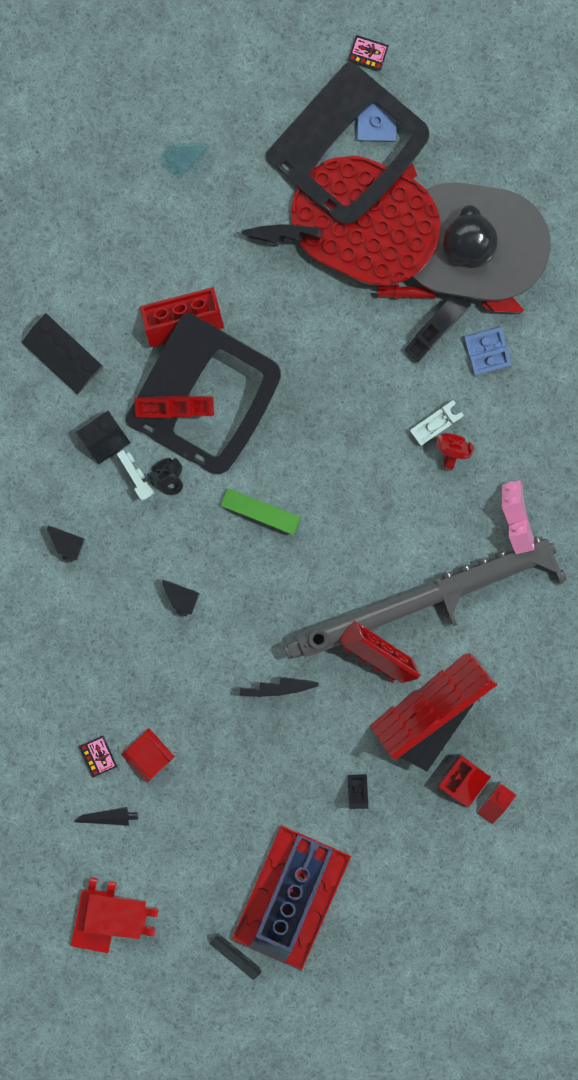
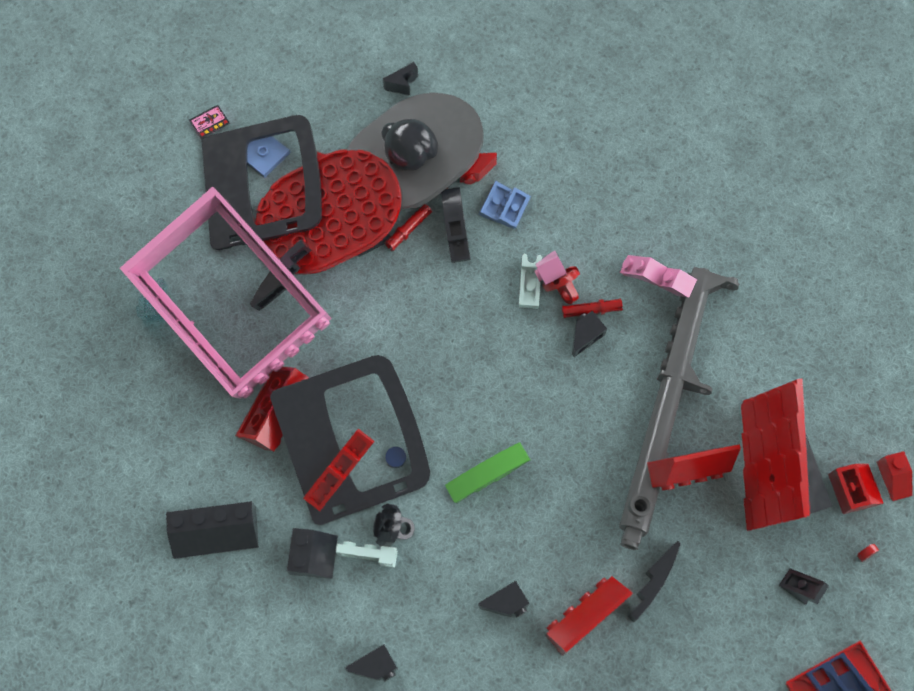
camera: 50 degrees left, 20 degrees down
(181, 202) = (175, 233): none -> bright pink door
(216, 660) = (587, 615): none -> red slope
(219, 436) = (395, 457): none -> dark blue tile
(420, 820) = (867, 552): none -> red tile
(428, 498) = (587, 332): none -> black slope
(456, 489) = (597, 307): none -> red pin
(457, 431) = (549, 268): none -> bright pink slope
(526, 174) = (398, 80): none -> black slope

